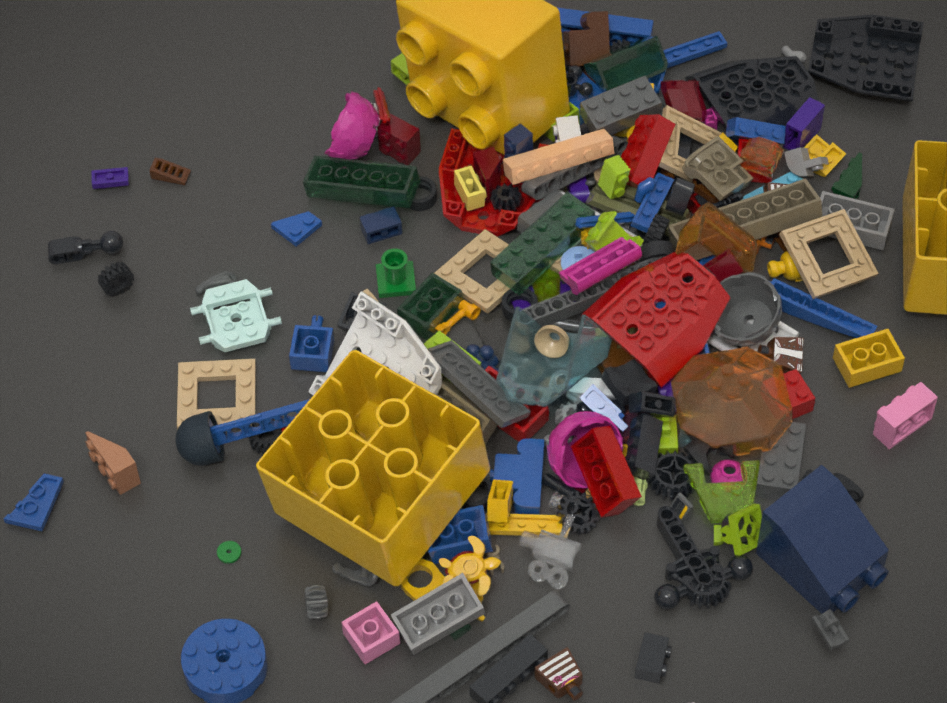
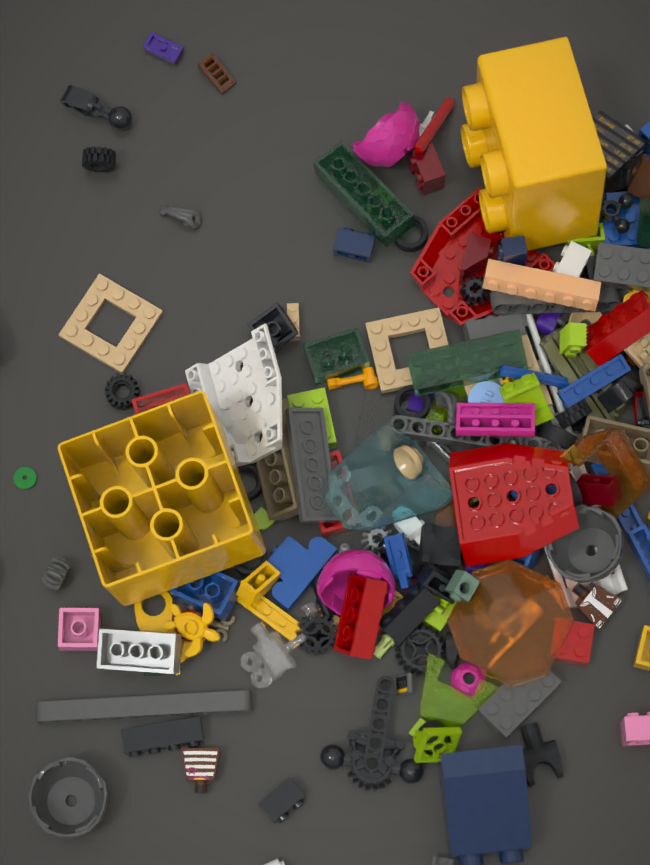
camera: 35 degrees right, 20 degrees up
(202, 439) = (68, 364): piece -> none
(231, 335) = (177, 279): light aqua piece -> none
(297, 227) = (285, 200): blue wing -> none
(312, 346) = (210, 322): blue brick -> none
(395, 274) = (331, 306): green plant -> none
(469, 188) = (448, 262): light yellow brick -> none
(484, 355) = (346, 438): dark blue piece -> none
(542, 282) = (447, 401): none -> dark grey piece
(643, 188) = (594, 364): blue arm -> none
(673, 390) = (469, 586): none -> sand green brick

